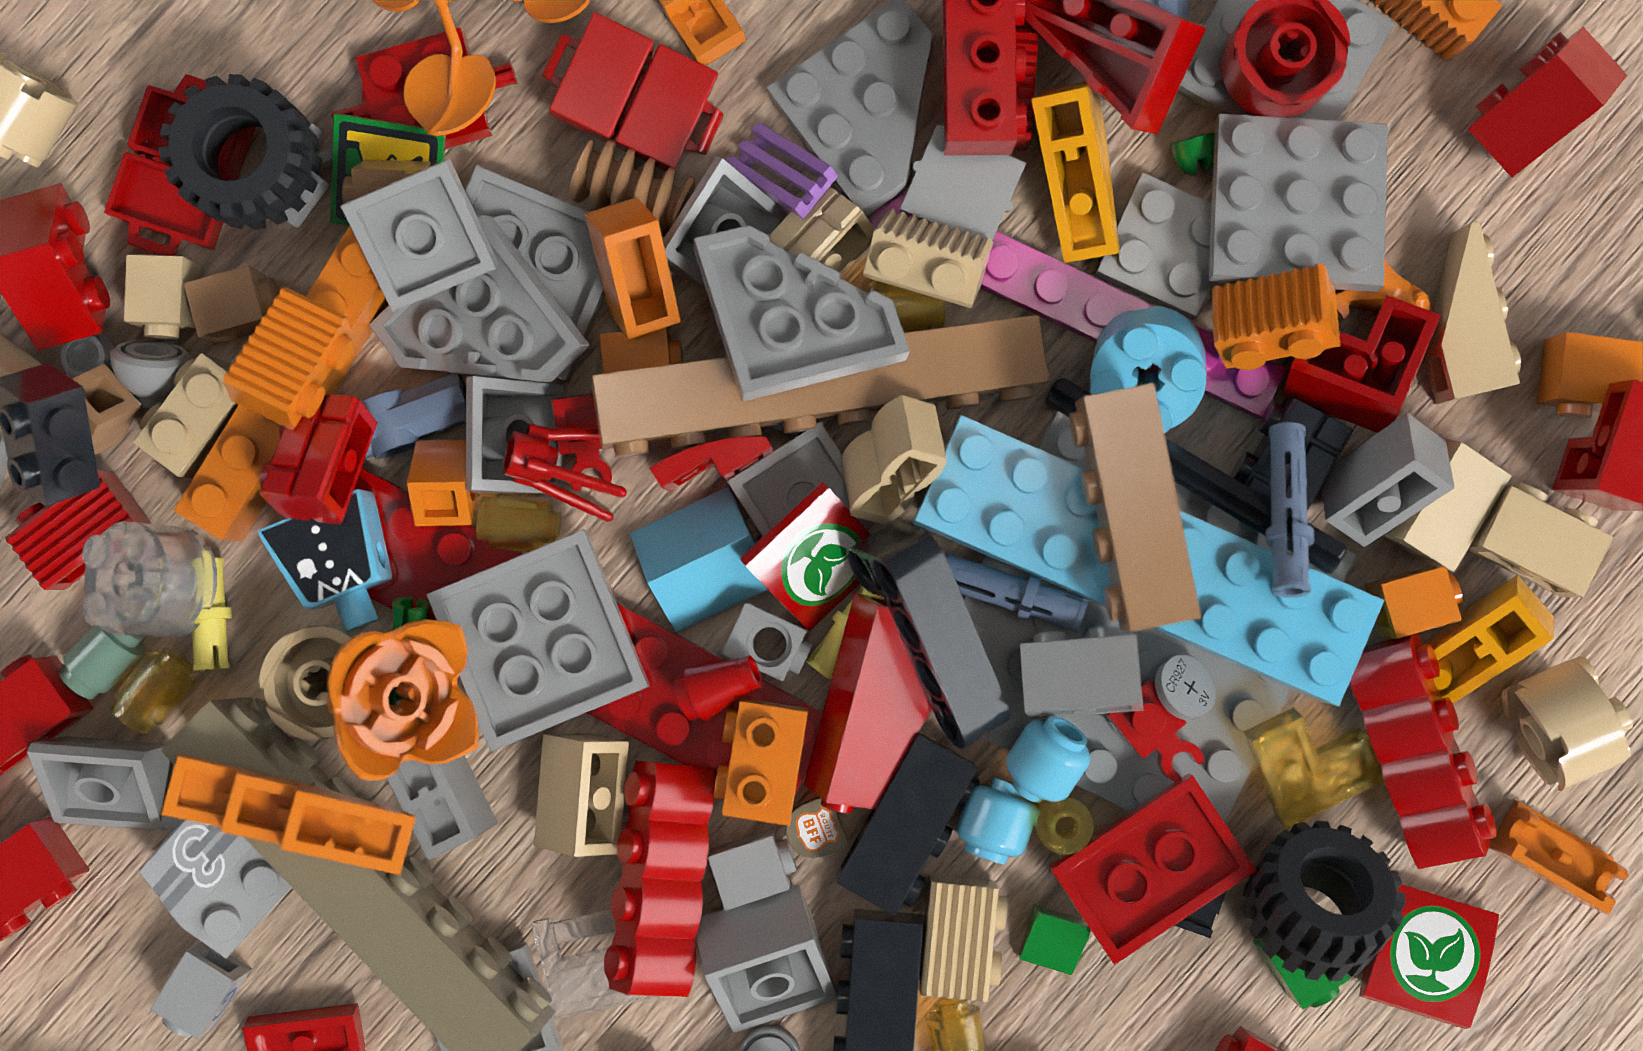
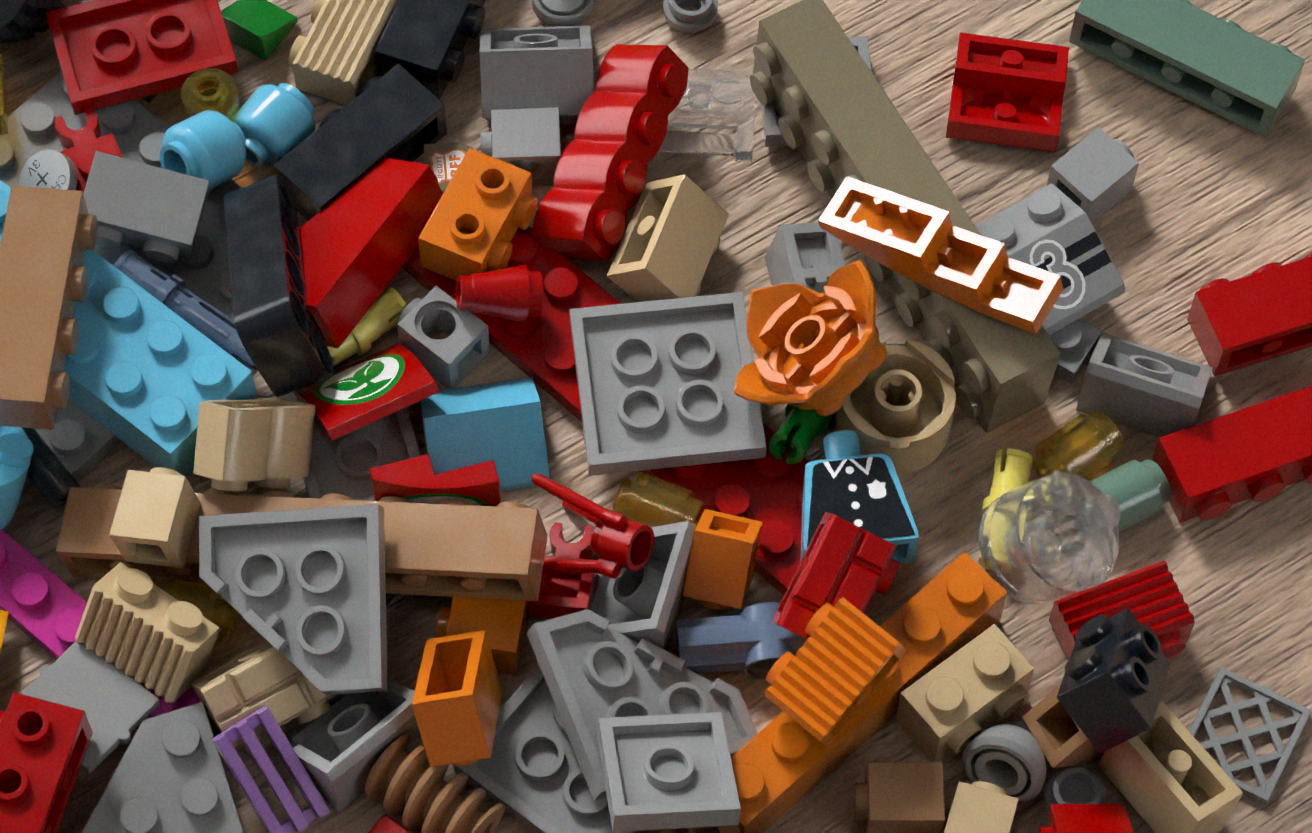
camera: 165 degrees left, 25 degrees down
(953, 350) = (155, 517): none -> tan brick

